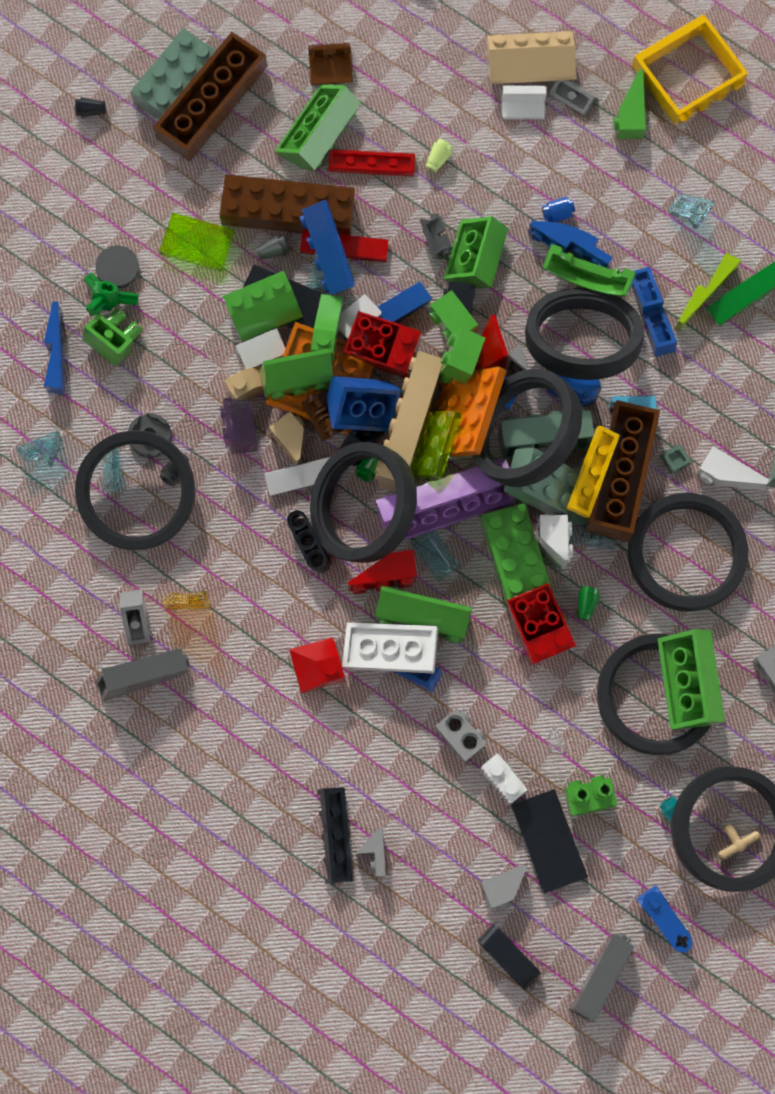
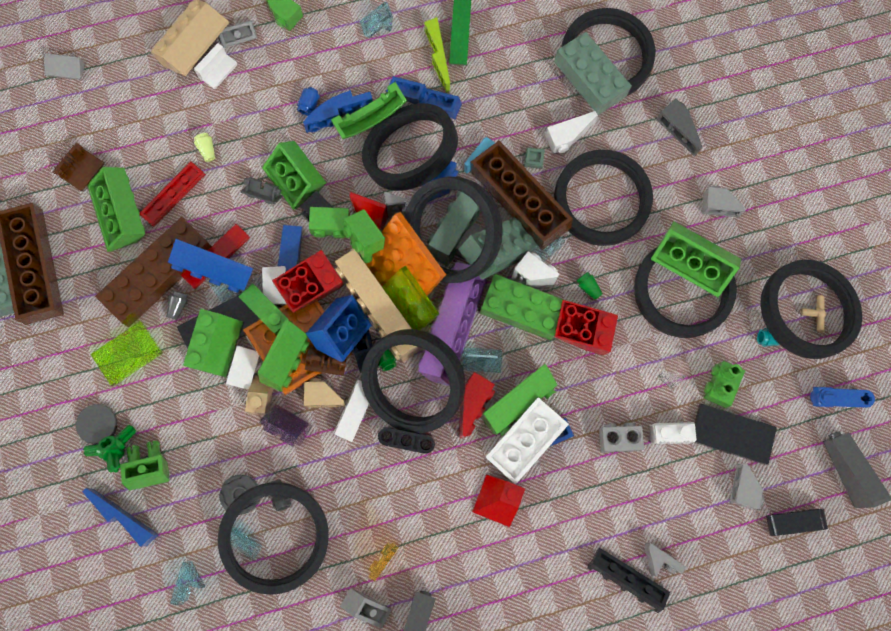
camera: 55 degrees left, 0 degrees up
(593, 471) = (512, 212): yellow plate -> none

